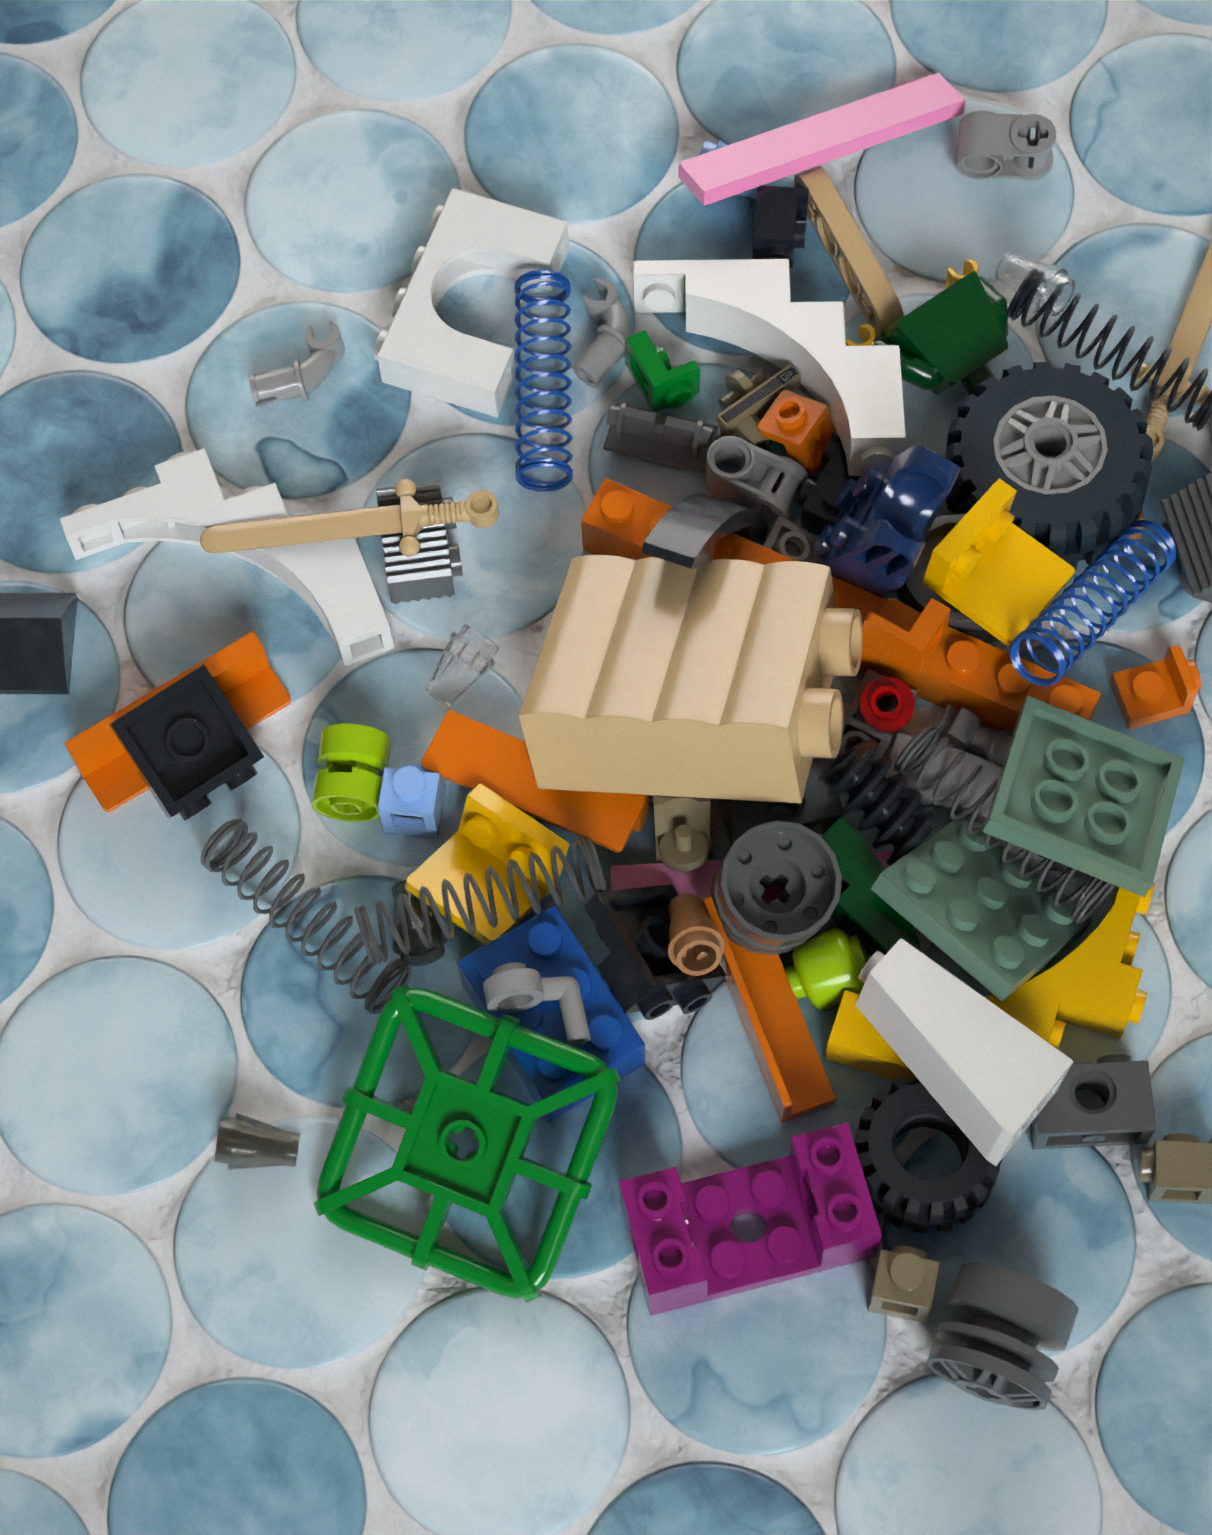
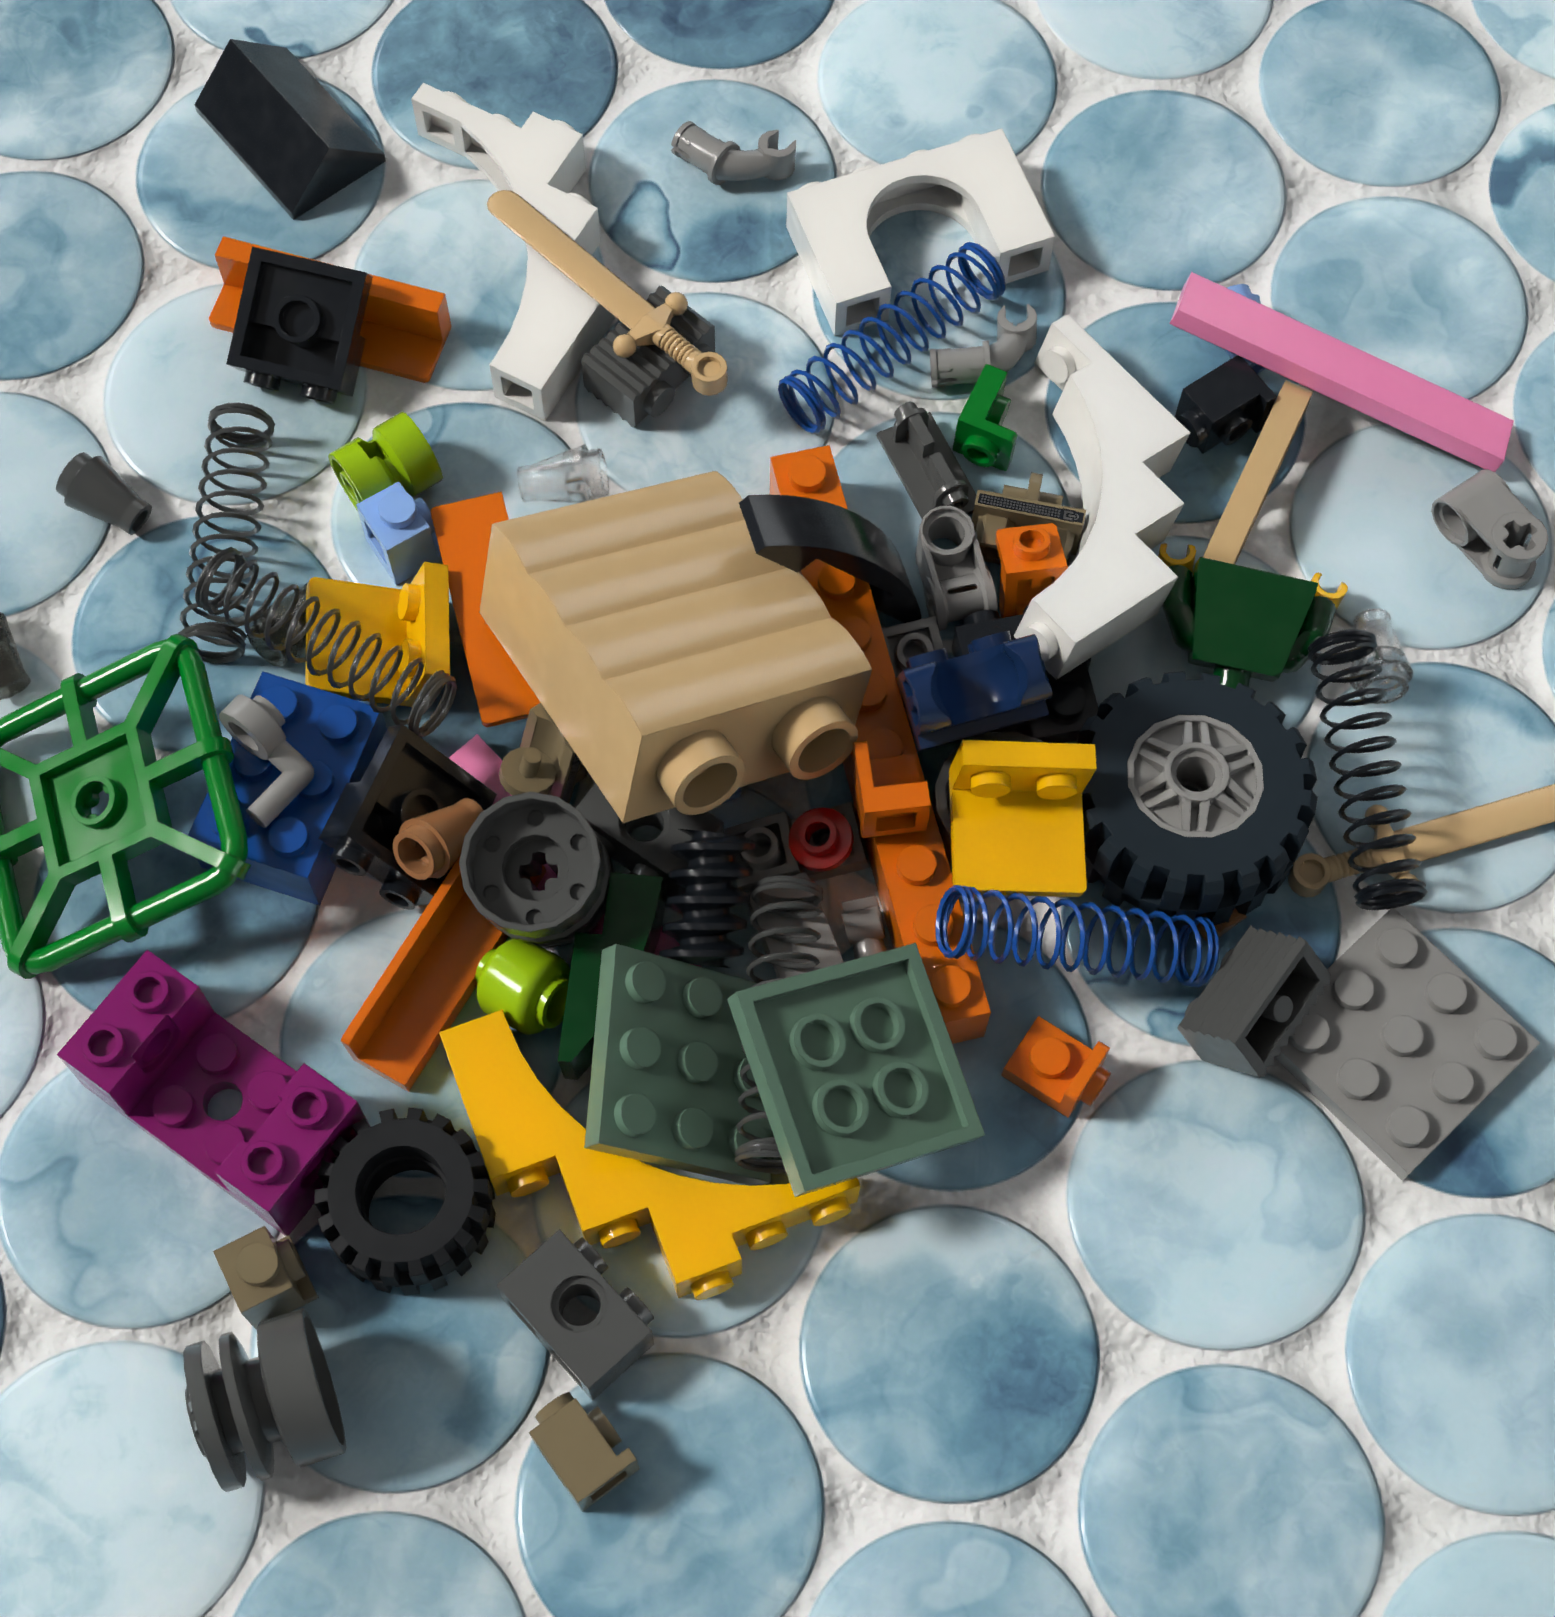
camera: 45 degrees right, 0 degrees up
(191, 979) = (100, 492): none -> dark grey cone
(961, 1047) = (508, 1155): white slope -> none

